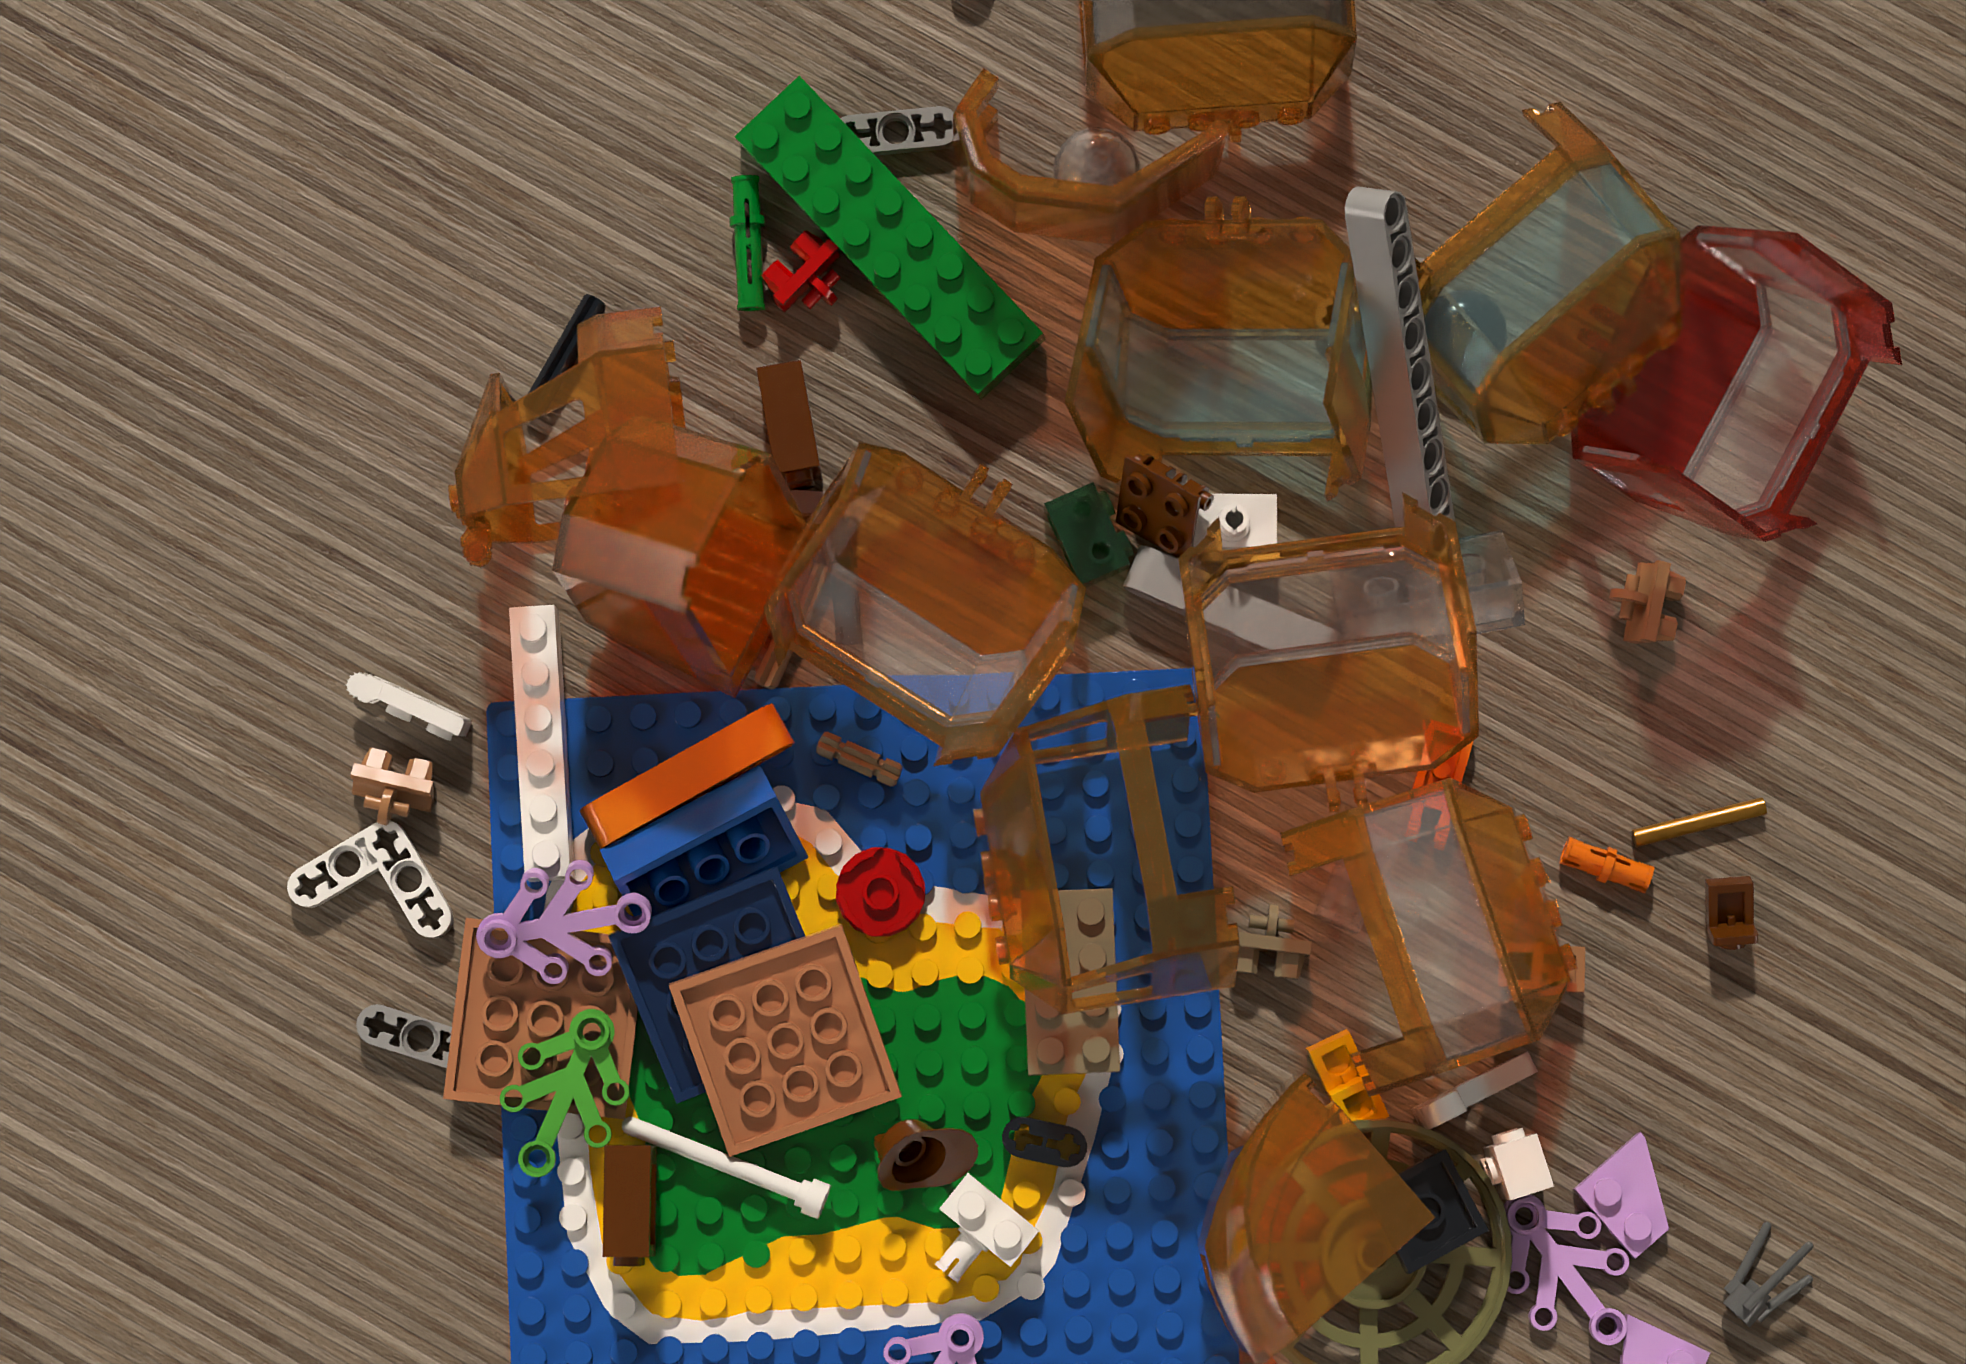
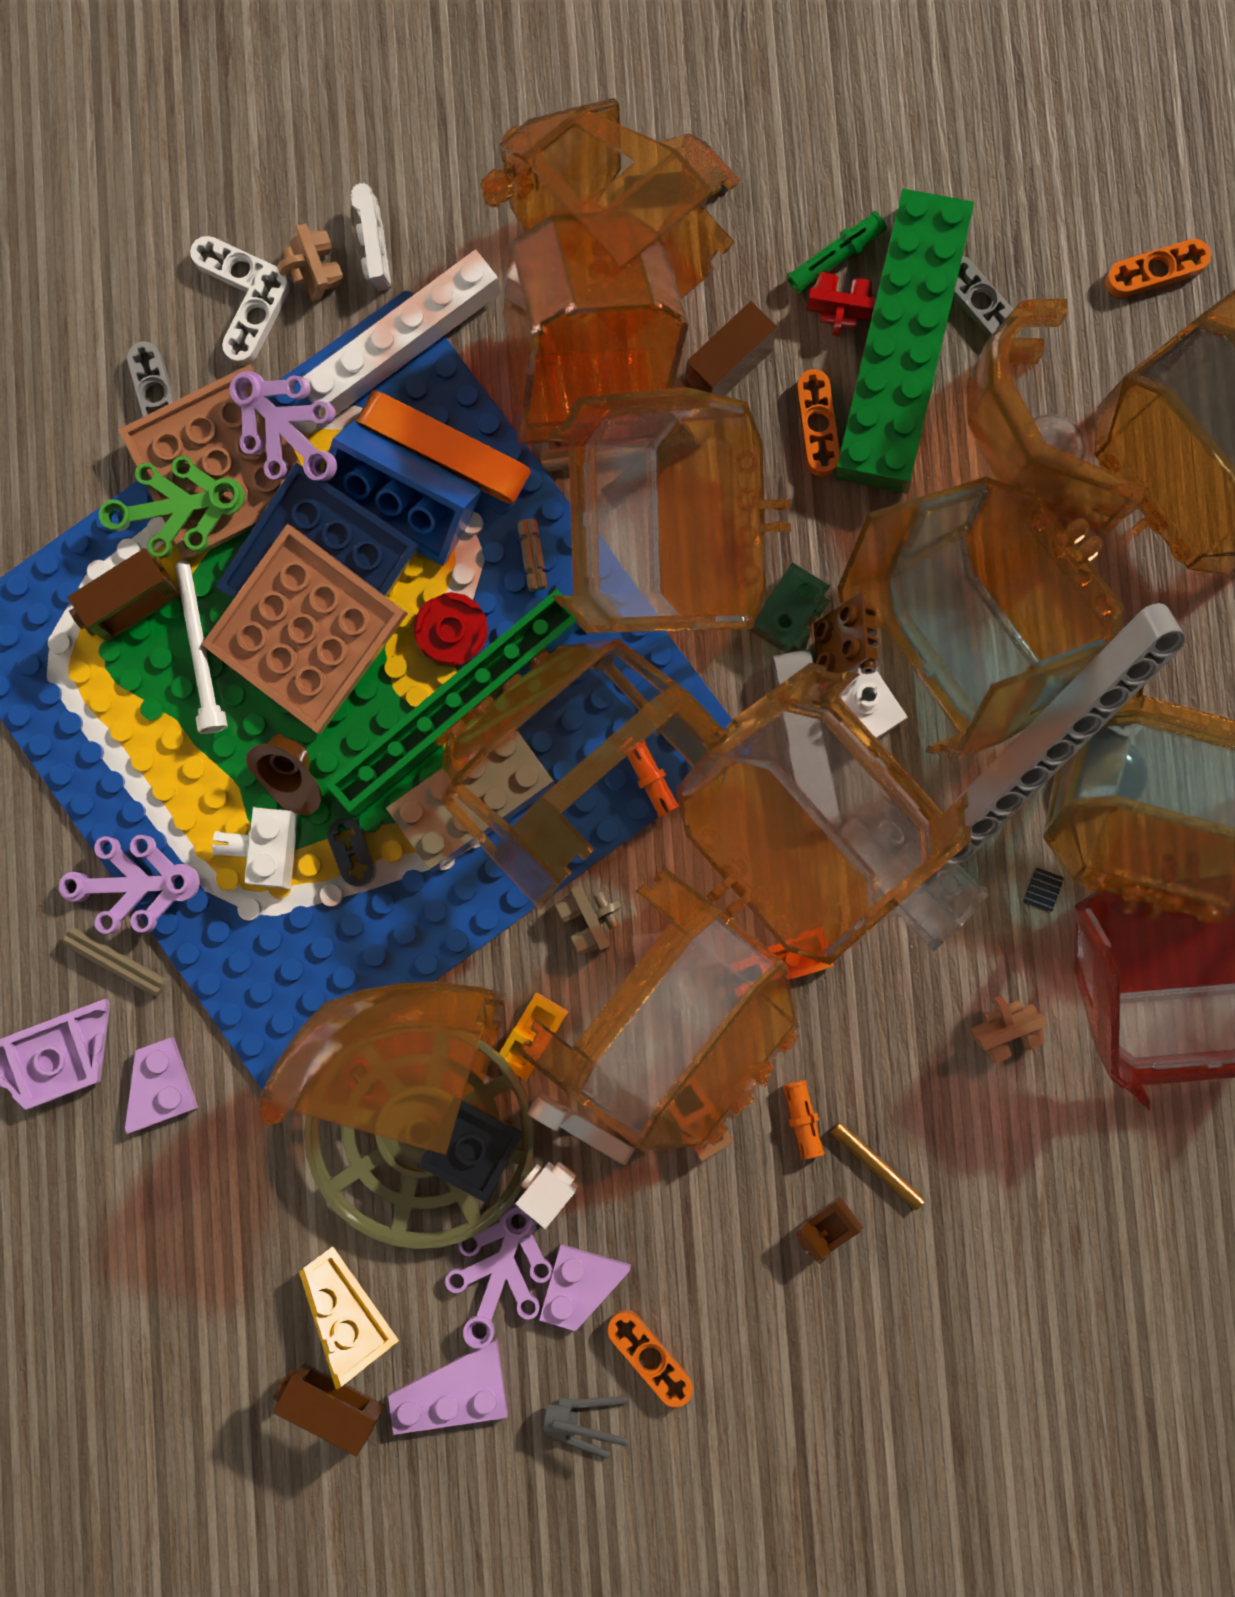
camera: 65 degrees right, 0 degrees up
(877, 376) = (804, 398): none -> orange beam
(965, 939) = (454, 701): none -> green brick
(1183, 791) = (652, 780): none -> orange pin
(1533, 474) = (1044, 889): none -> black sticker
(1777, 1179) = (676, 1374): none -> orange beam

